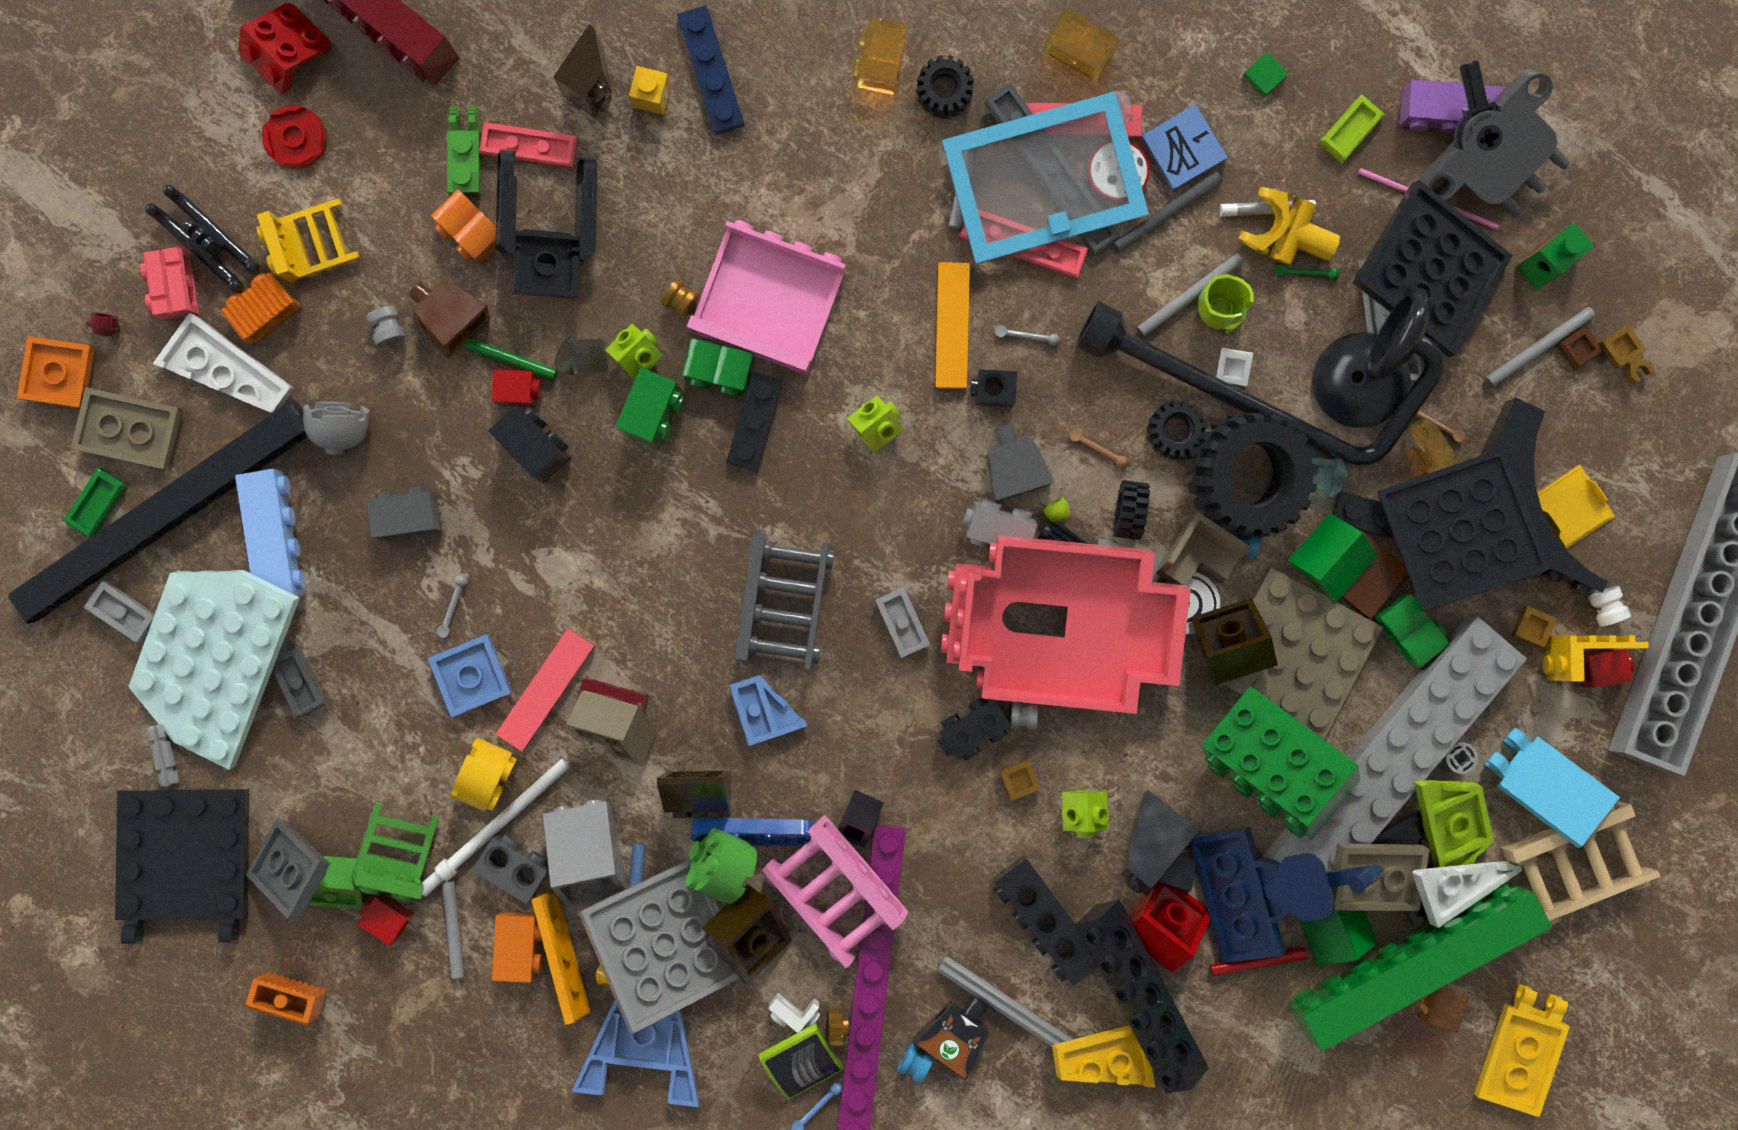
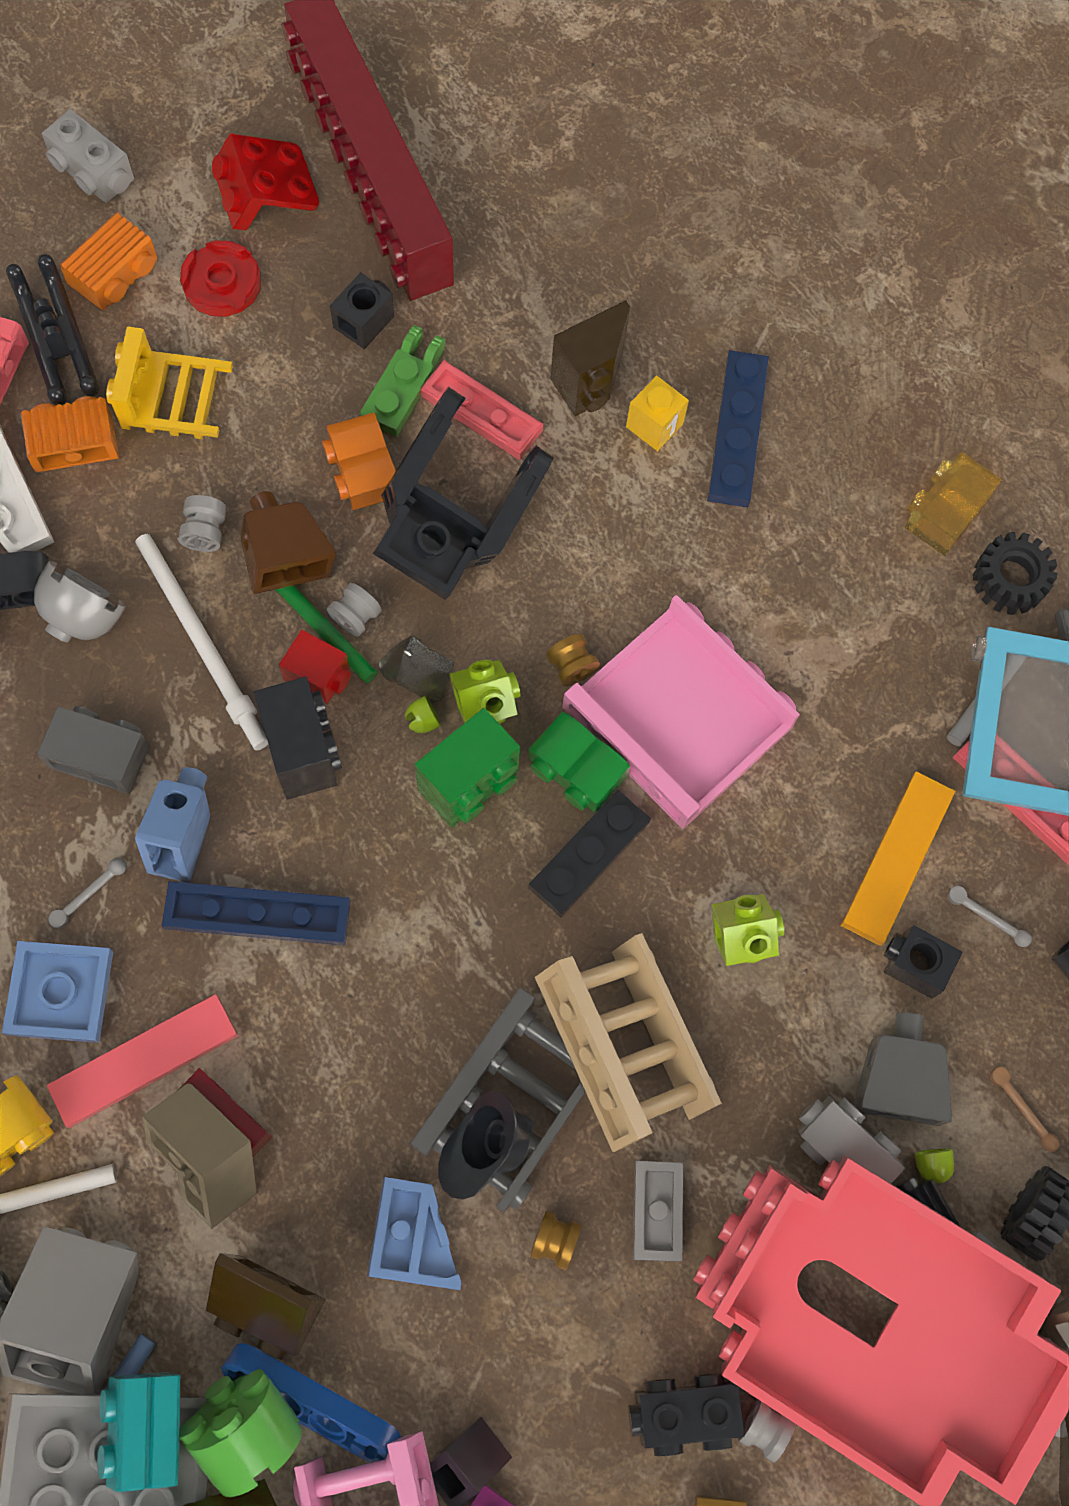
camera: 25 degrees right, 15 degrees down
(148, 92) = (87, 156): none -> light grey brick
(212, 165) = (109, 262): none -> orange brick
(413, 125) = (358, 324): none -> black brick
(480, 439) = (239, 706): none -> white bar
(484, 538) = (175, 826): none -> medium blue torso
(519, 336) = (354, 609): none -> light grey wheel
(565, 566) = (256, 913): none -> dark blue plate
(602, 383) = (423, 716): none -> lime hinge
(663, 894) = (141, 1431): none -> teal brick
(778, 637) = (484, 1144): none -> black piece
(817, 551) = (594, 1055): none -> tan fence
(849, 670) = (556, 1240): none -> pearl gold wheel

